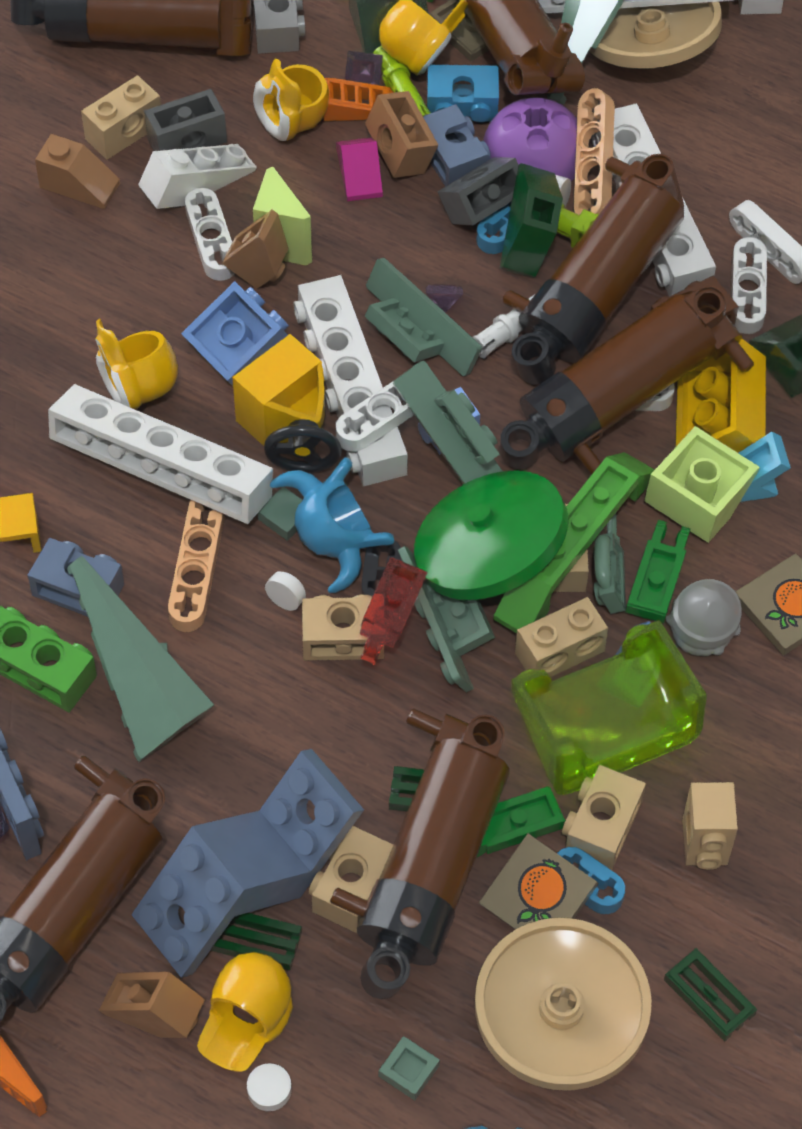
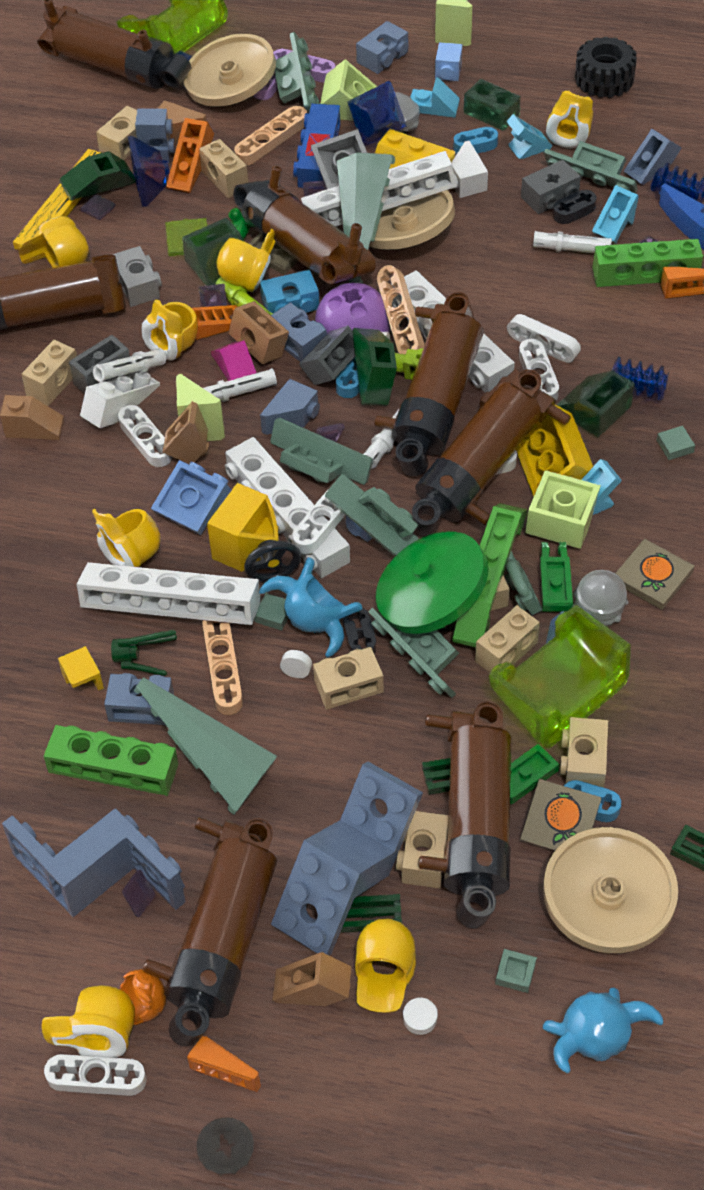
camera: 15 degrees left, 5 degrees down
(86, 511) = (127, 649): none -> dark green plant
(235, 133) = (137, 362): none -> white pin
(350, 199) = (242, 385): none -> white pin
(390, 607) = (381, 651): clear red hinge -> none
(409, 245) = (292, 403): none -> sand blue slope
(709, 824) = (663, 735): tan brick -> none

